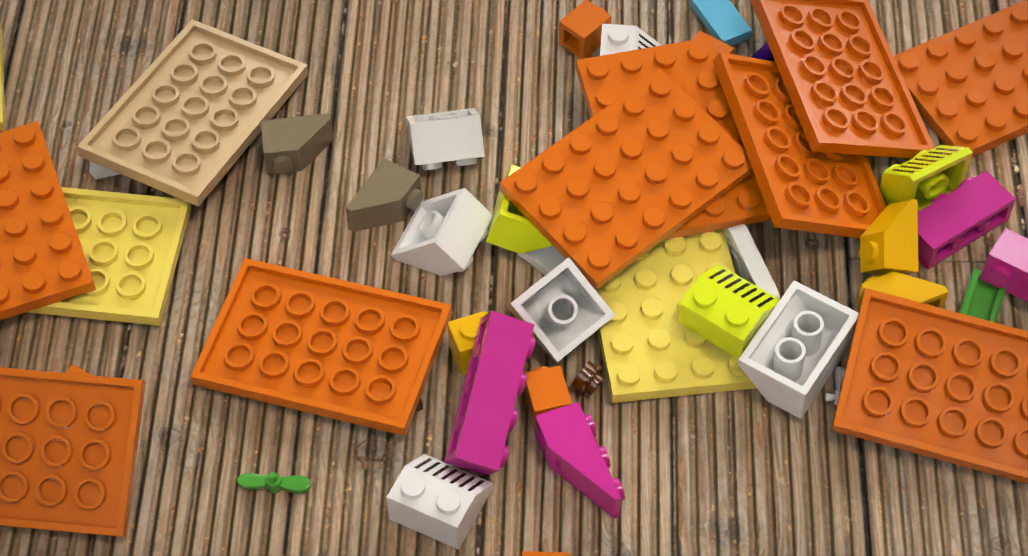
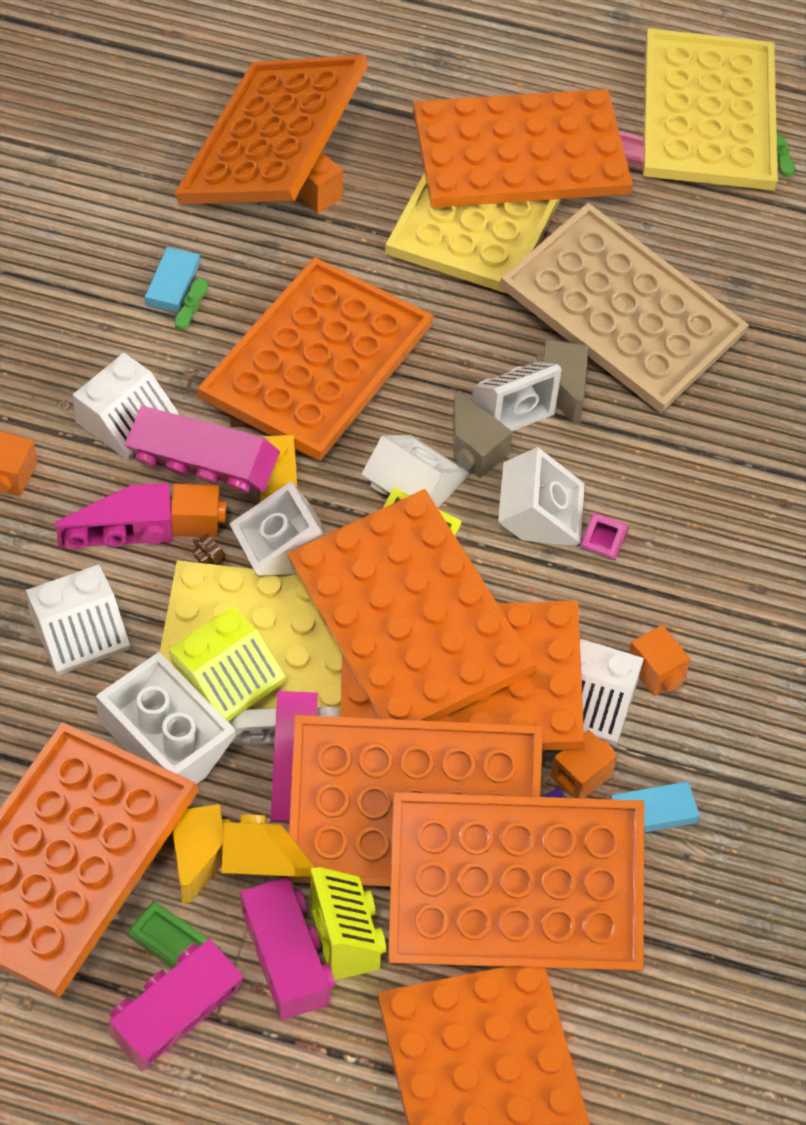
camera: 100 degrees right, 0 degrees up
(244, 509) = (172, 279): none -> medium azure tile
(330, 165) = (520, 395): none -> white slope
(459, 91) = (604, 536): none -> dark pink slope
(705, 463) = (77, 619): none -> white slope
(784, 249) = (288, 705): none -> dark pink slope

